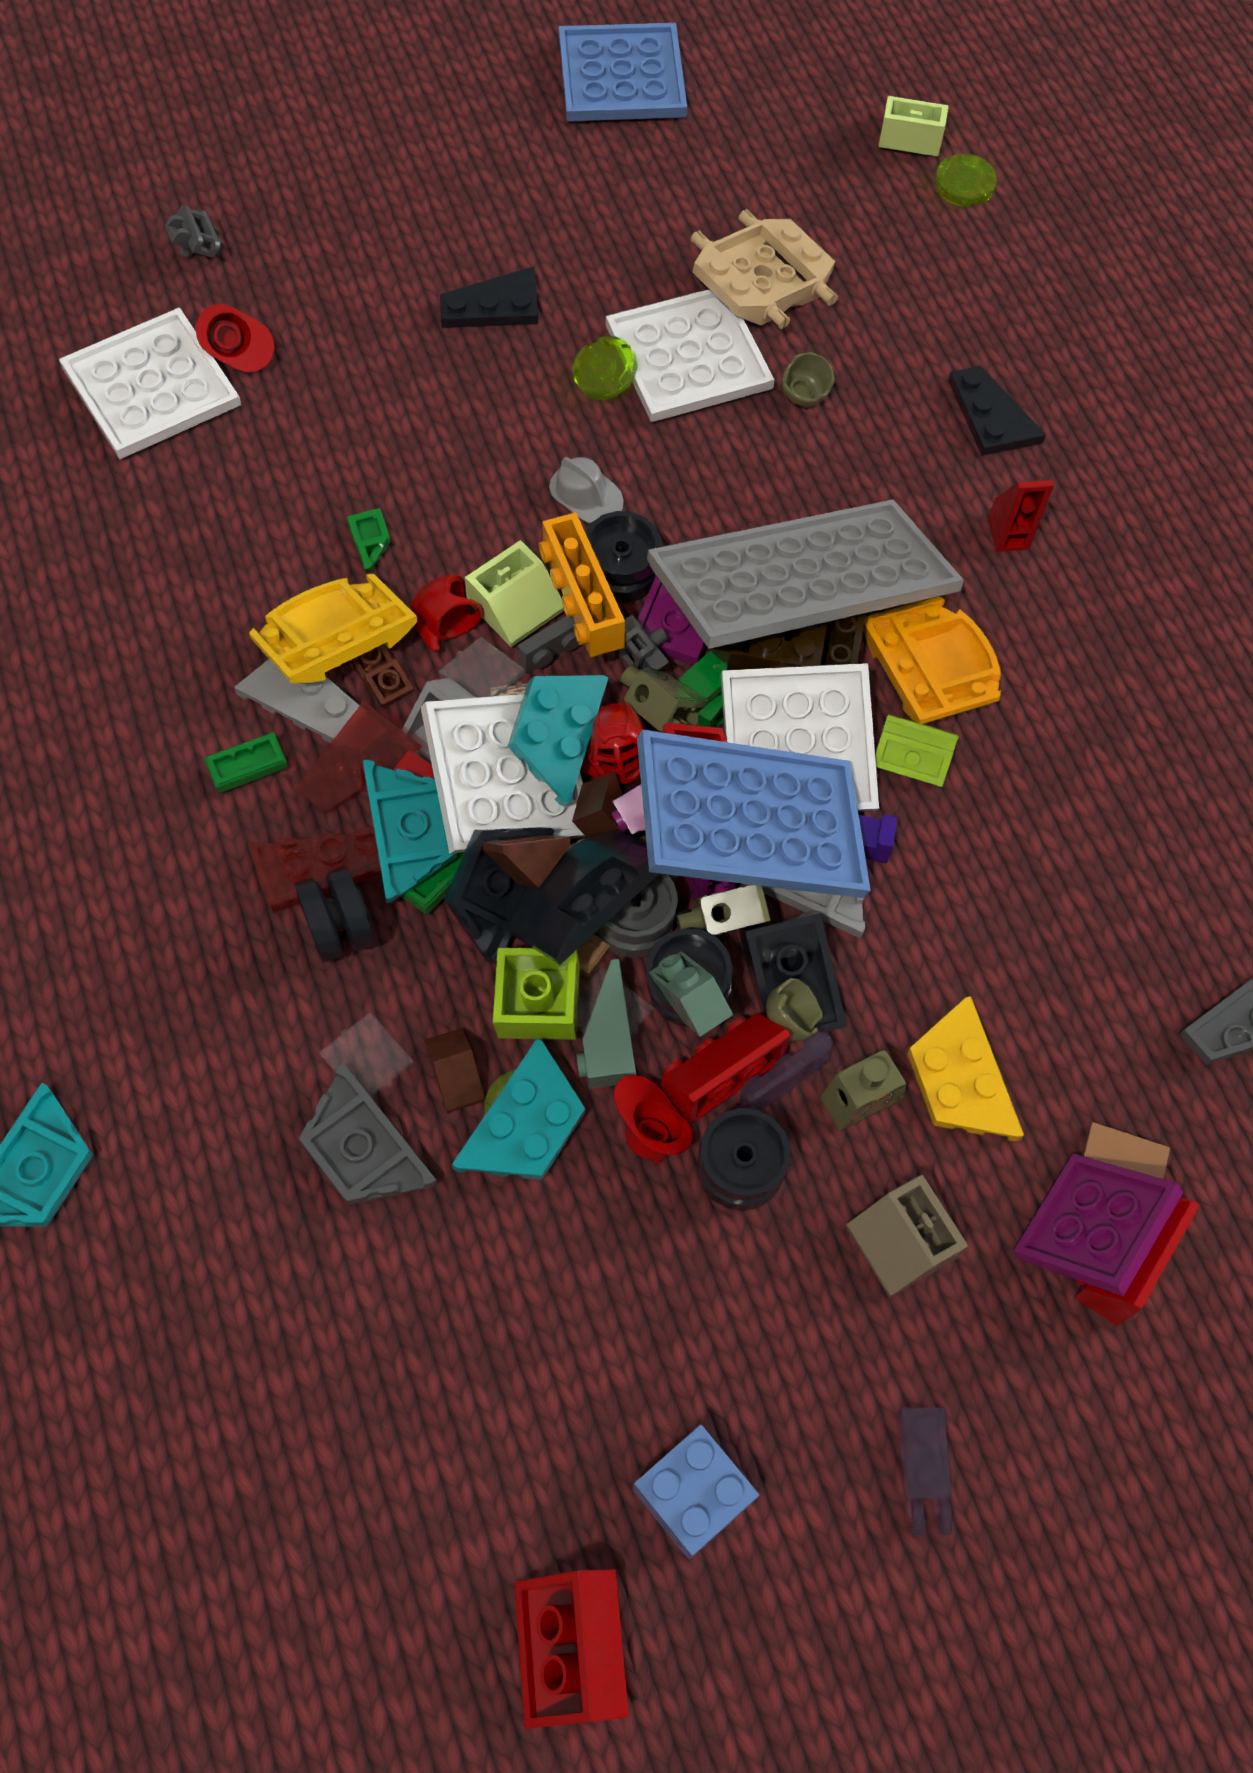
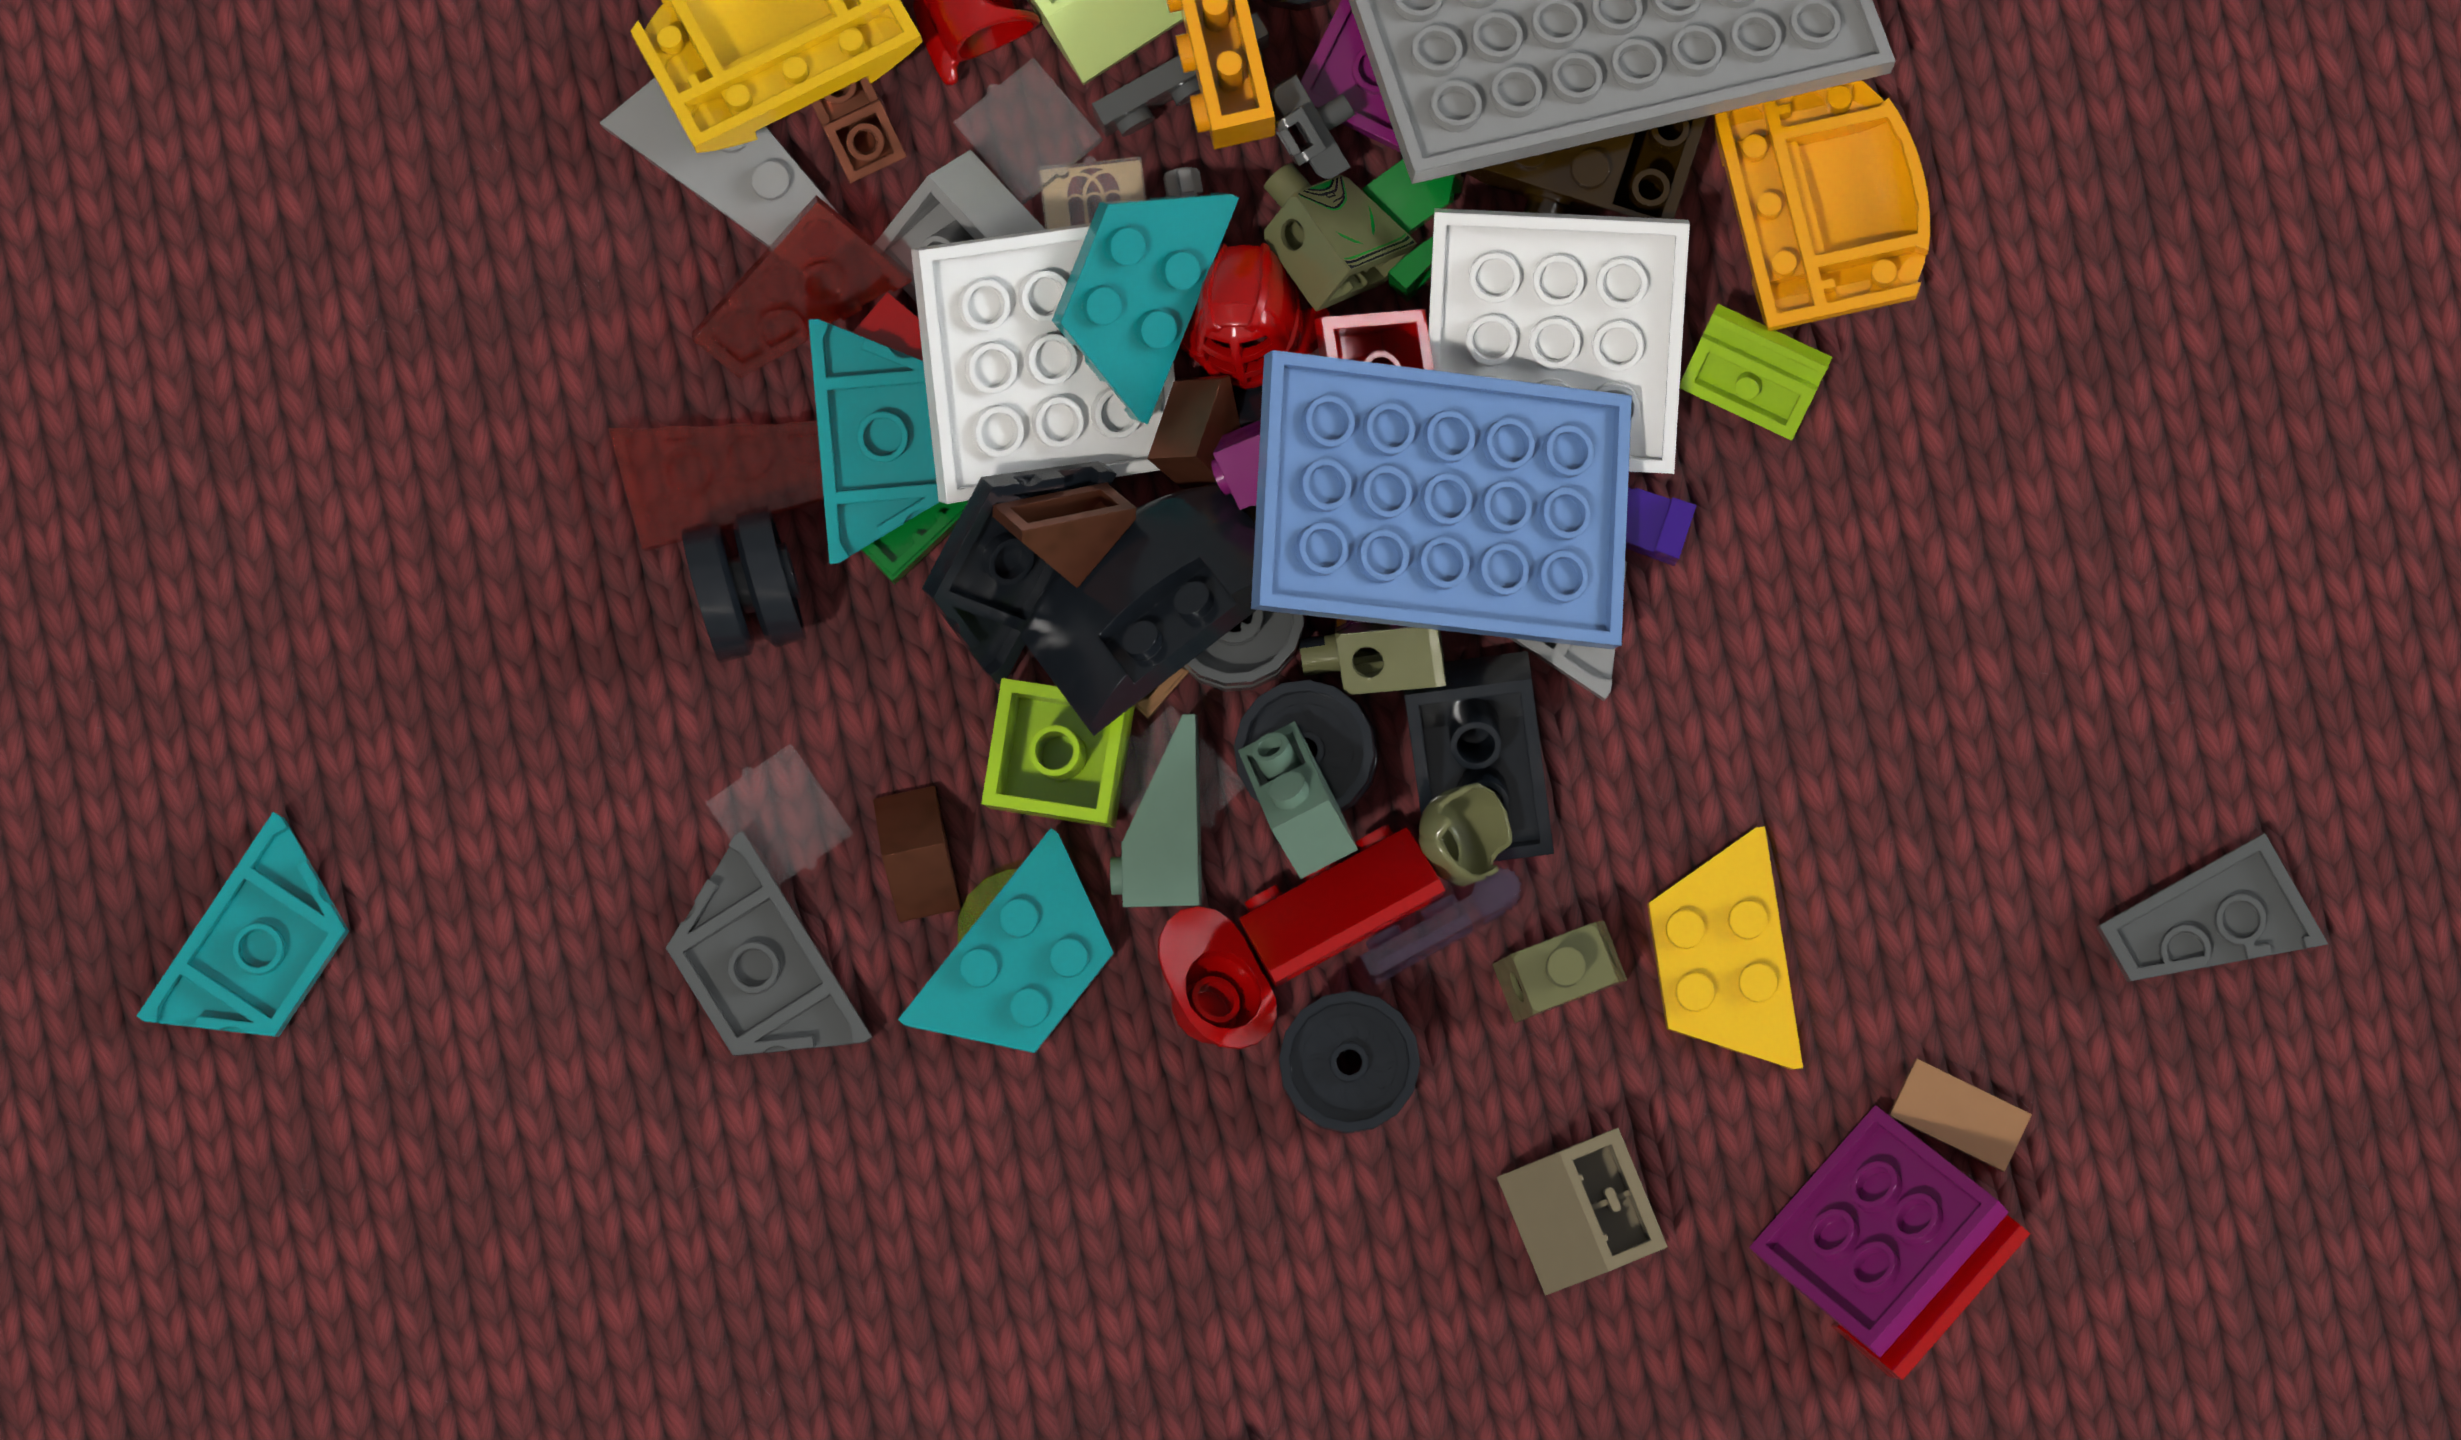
camera: 15 degrees right, 20 degrees up
(246, 762) = (613, 271): green plate -> none

